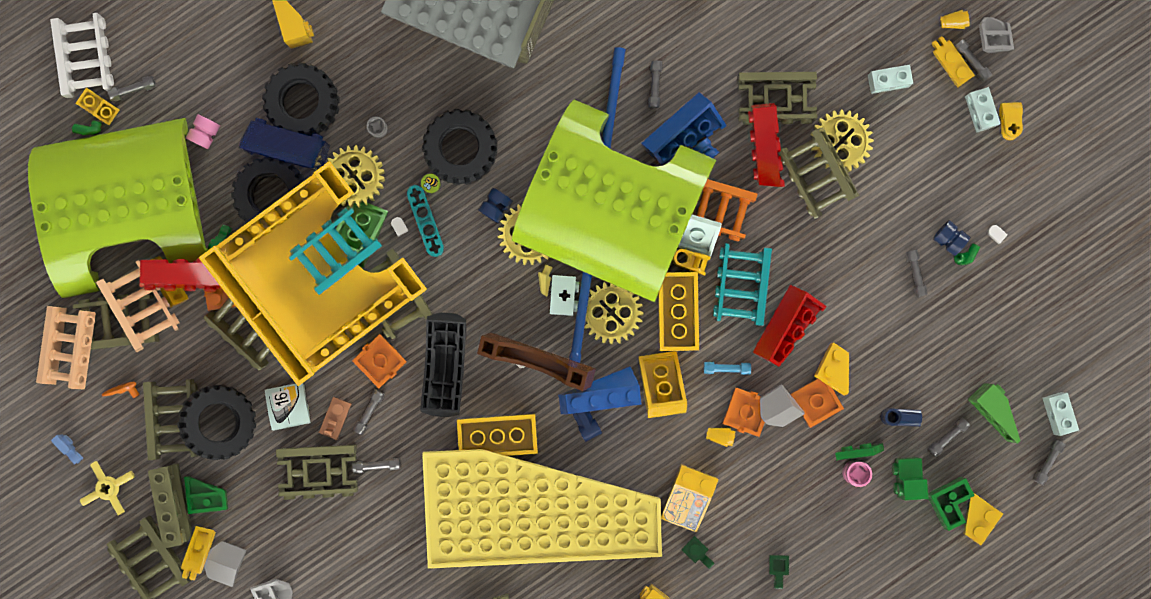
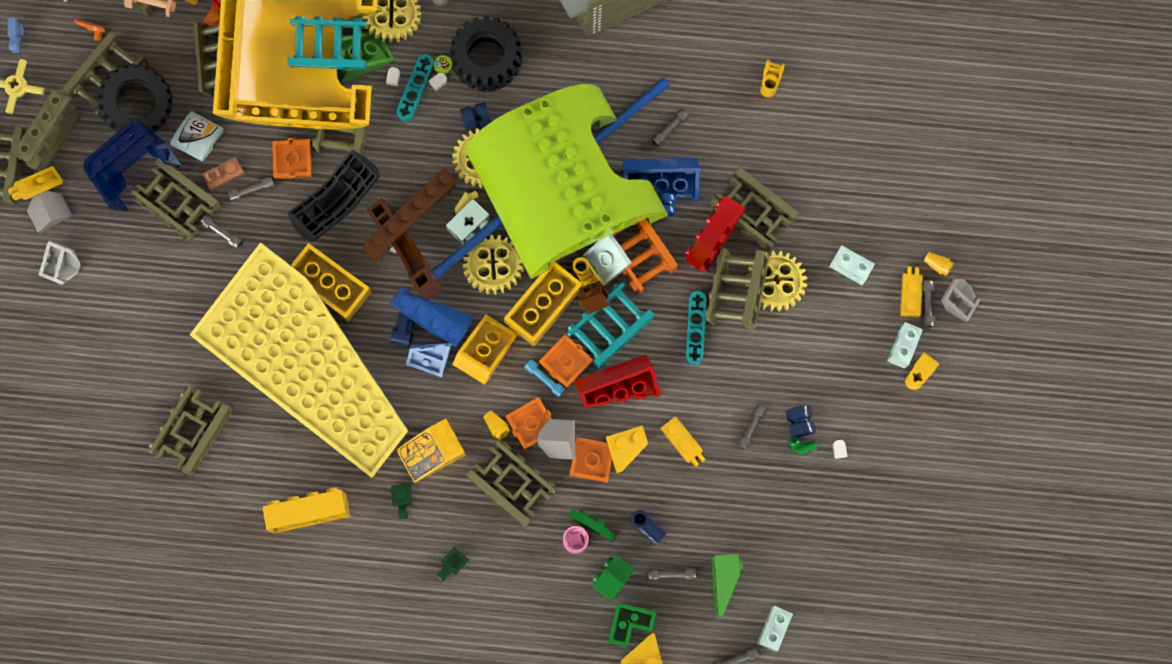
camera: 35 degrees right, 10 degrees down
(204, 497) = (75, 148): green wing -> none
(241, 492) = (118, 154): none -> clear blue windscreen
(438, 199) = (438, 81): none -> white piece
(516, 329) = (391, 231): none -> reddish brown arch
(626, 428) = (429, 357): none -> medium blue wing
(715, 275) = (594, 297): none -> reddish brown brick
(732, 341) = (566, 361): none -> orange plate
(771, 485) = (502, 494): none -> olive fence
(807, 232) = (695, 328): none -> teal beam
(872, 327) = (683, 441): none -> yellow hinge

